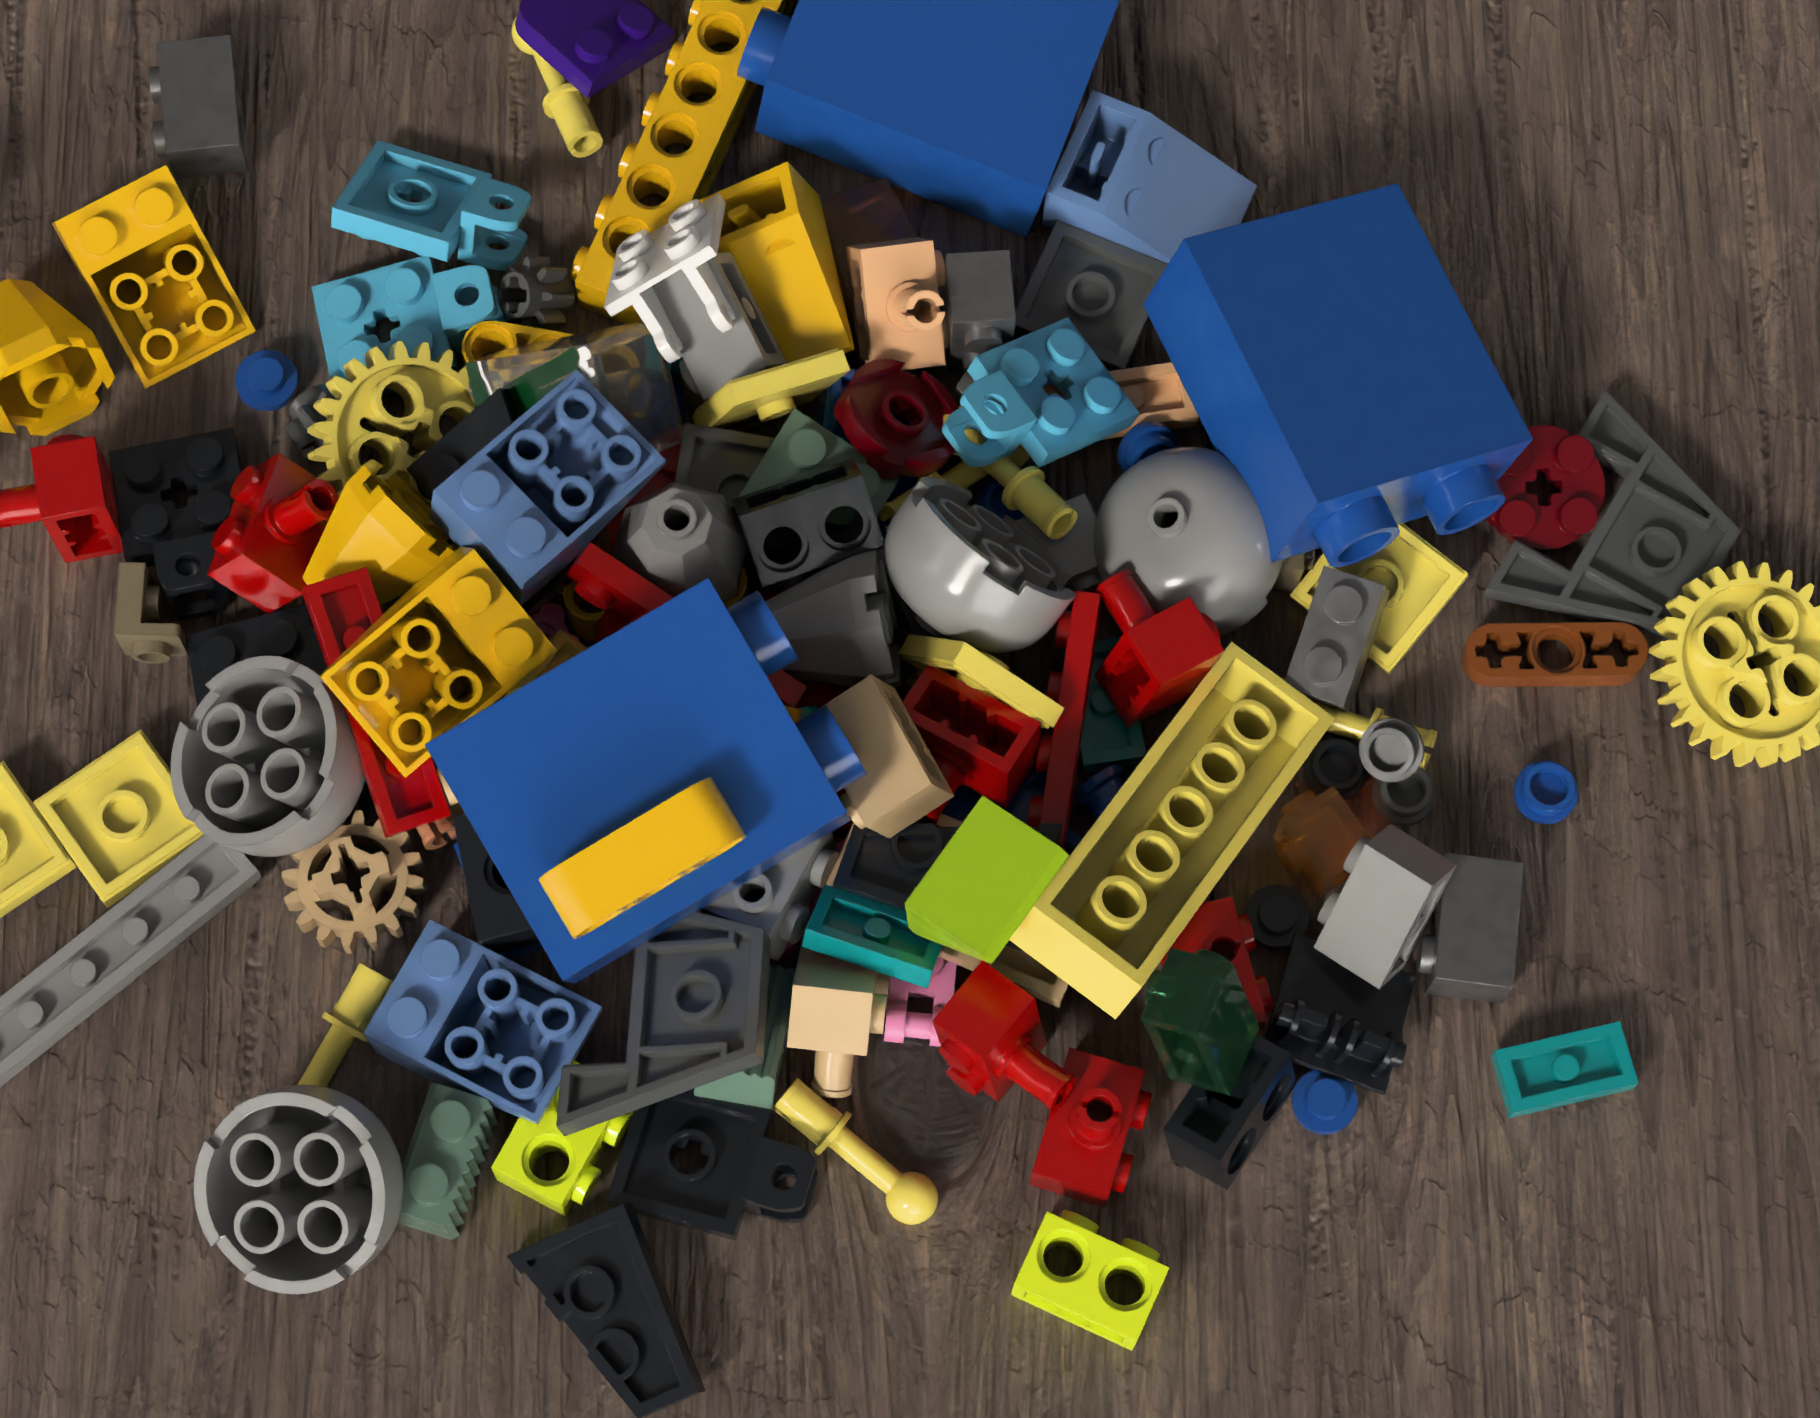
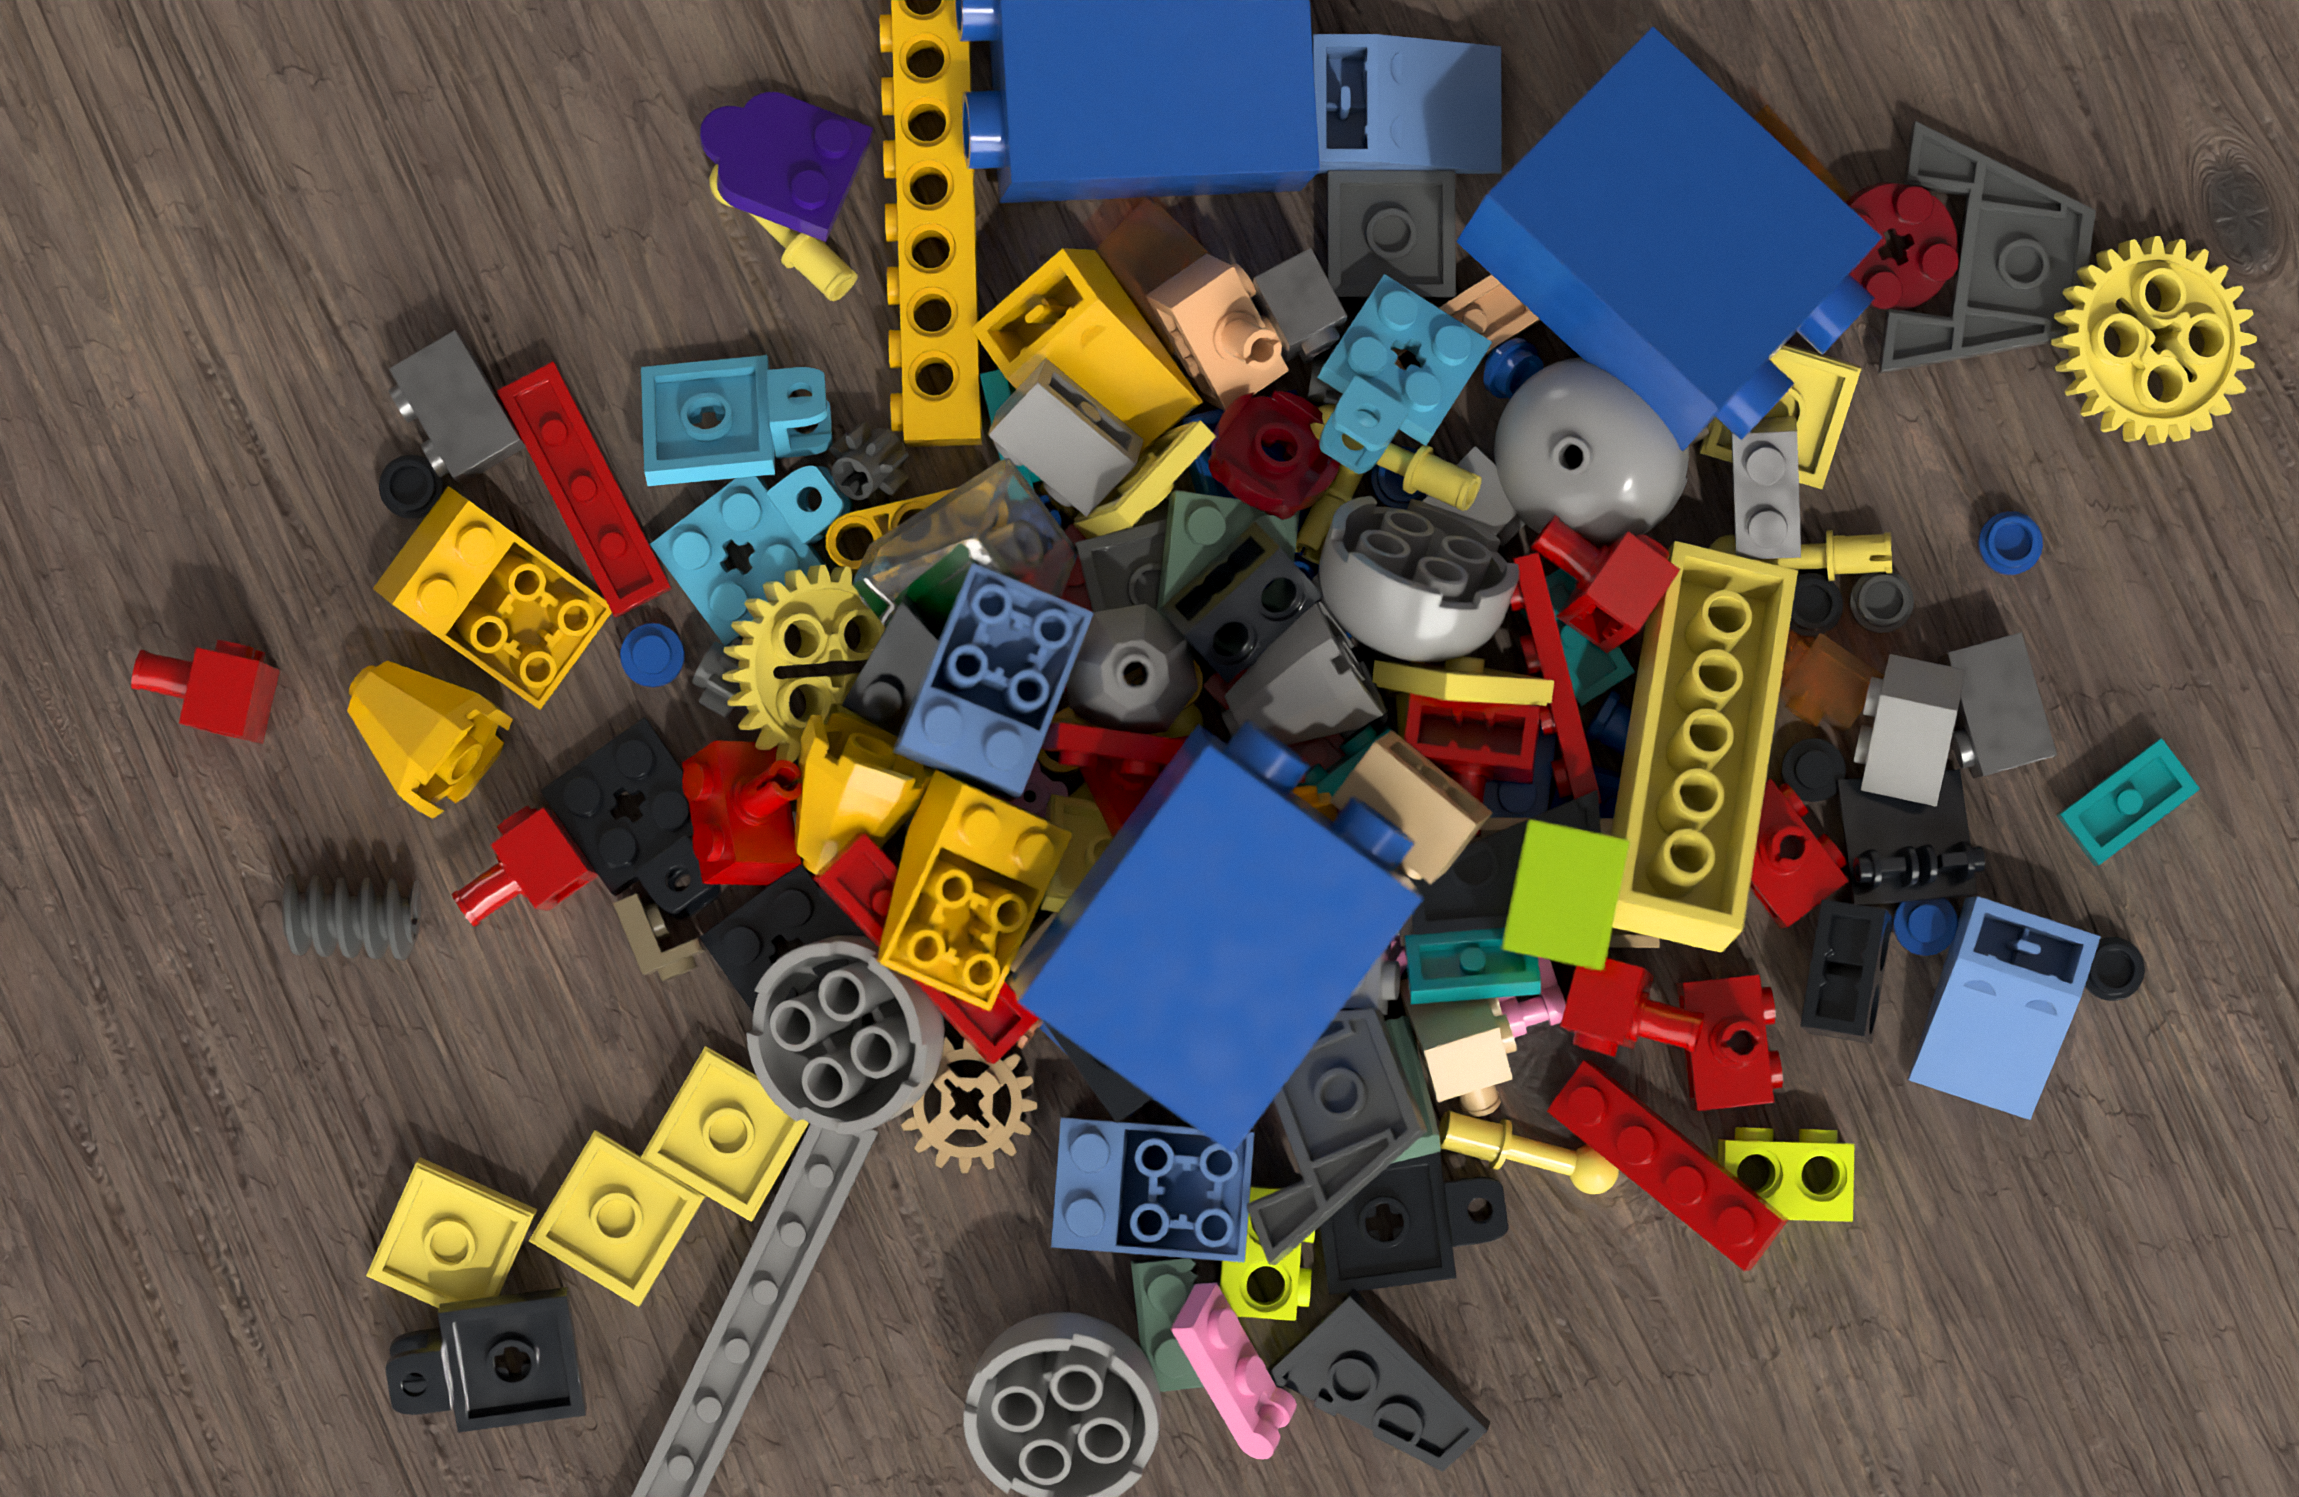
camera: 25 degrees left, 15 degrees up
(128, 155) = (410, 486): none -> black plate
(277, 220) = (584, 489): none -> red plate
(348, 1020) = (1022, 1232): light yellow pin -> none
(478, 1225) = (1232, 1371): none -> bright pink plate
(642, 857) = (1262, 1024): yellow beam -> none
(647, 258) = (992, 398): white plate -> none
(982, 1214) = (1667, 1165): none -> red plate
(1199, 1019) = (1798, 923): clear green brick -> none
(1367, 1203) = (2002, 1006): none -> medium blue slope
(1391, 749) = (1858, 574): plate -> none
(1487, 1220) = (2115, 970): none -> black plate
(1600, 670) = (2002, 369): dark orange beam -> none

